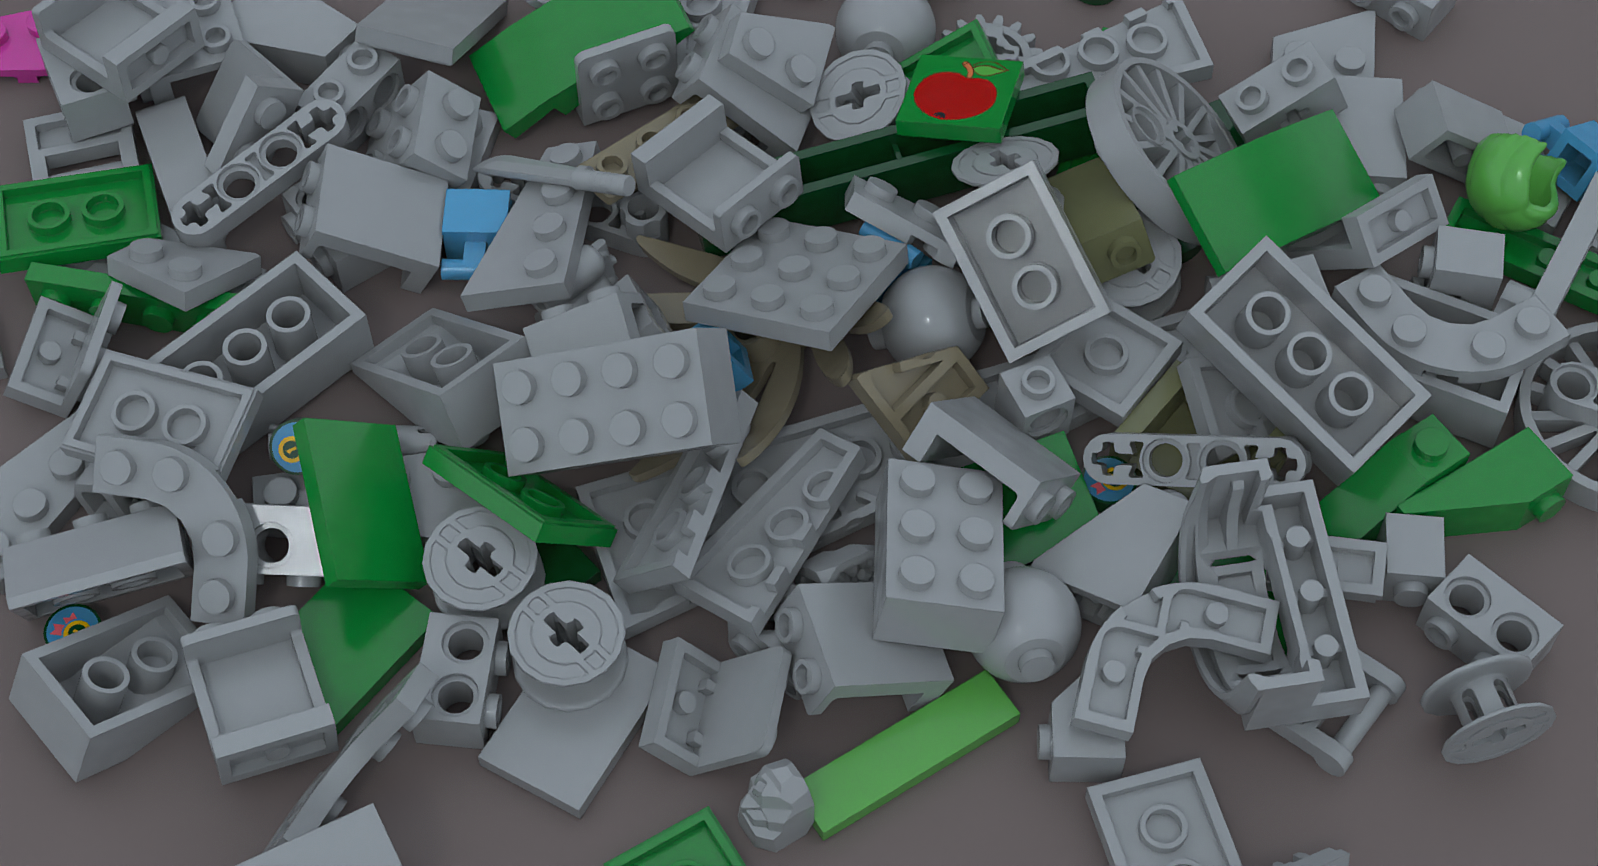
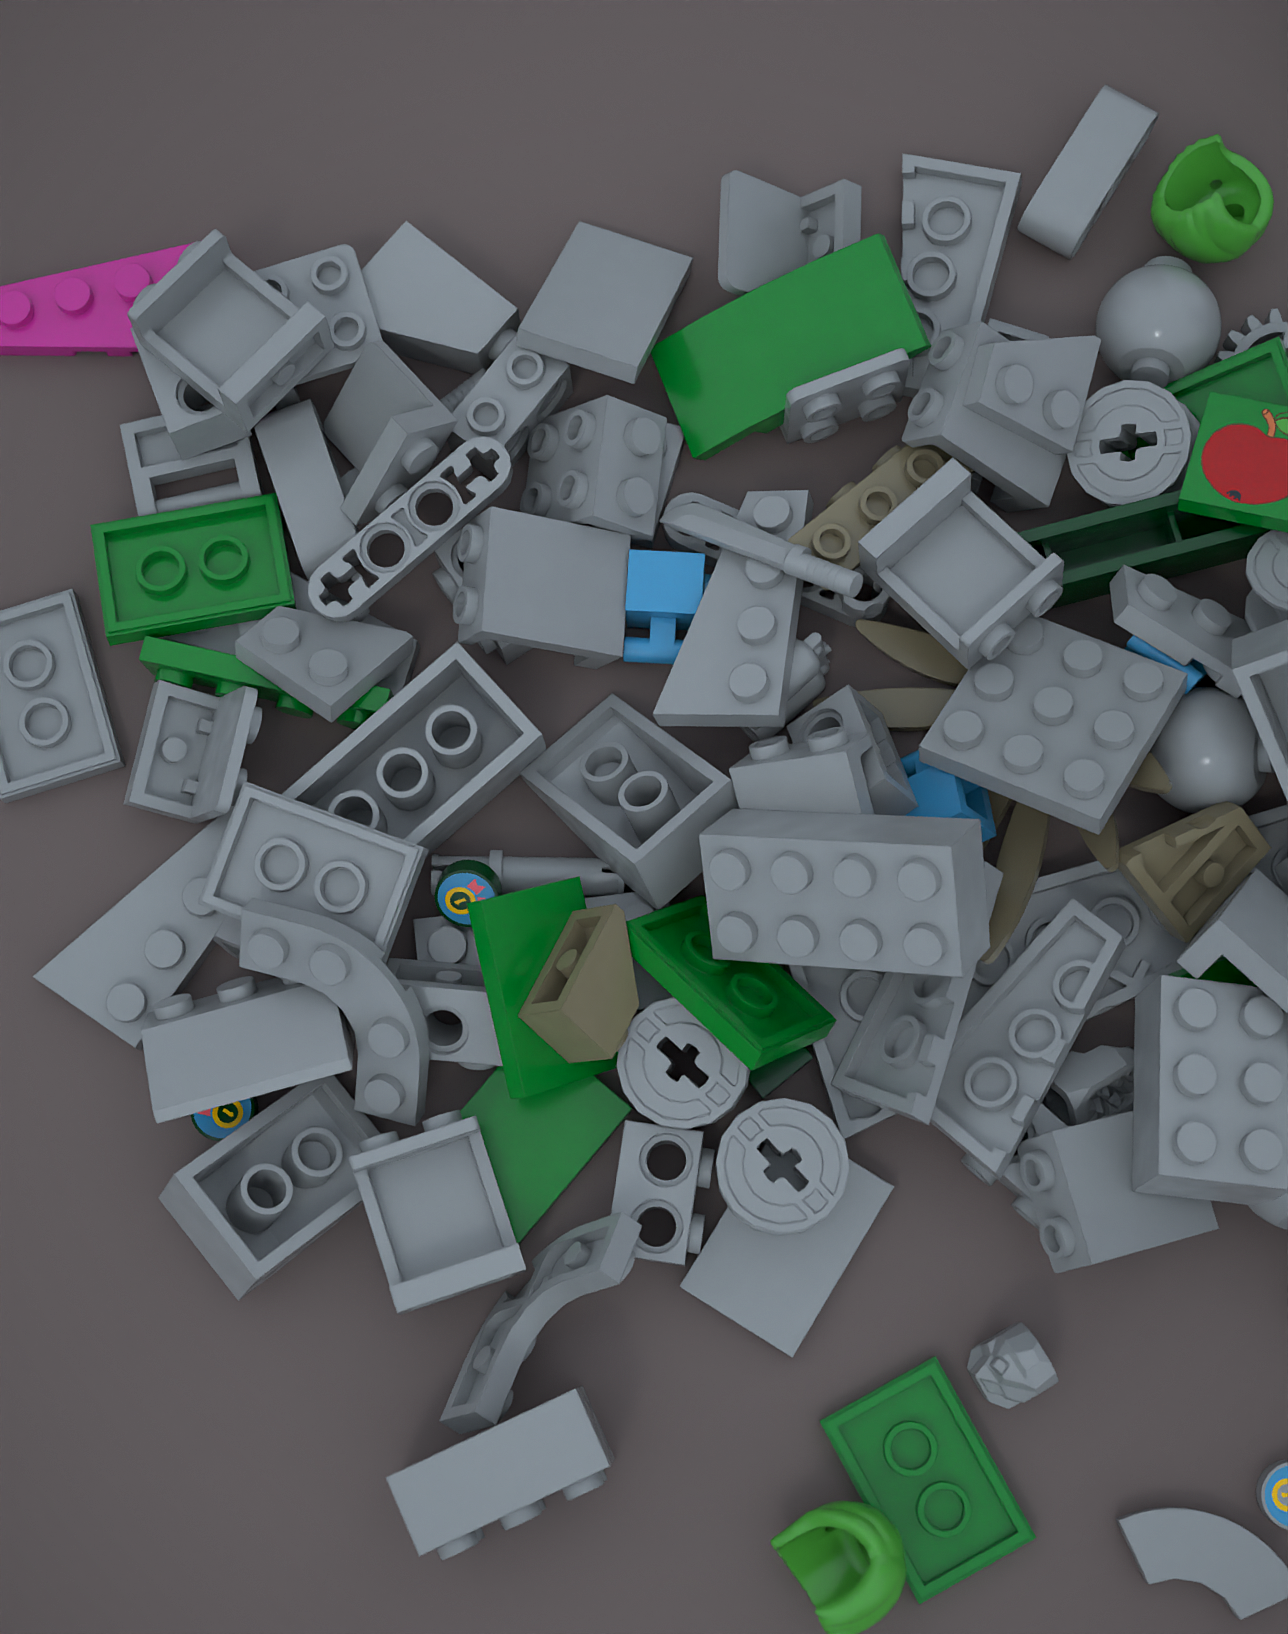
camera: 10 degrees right, 20 degrees up
(395, 500) = (586, 988): none -> dark tan slope
(711, 710) = (950, 1247): light grey bracket -> none
(909, 752) = (1158, 1298): bright green tile -> none

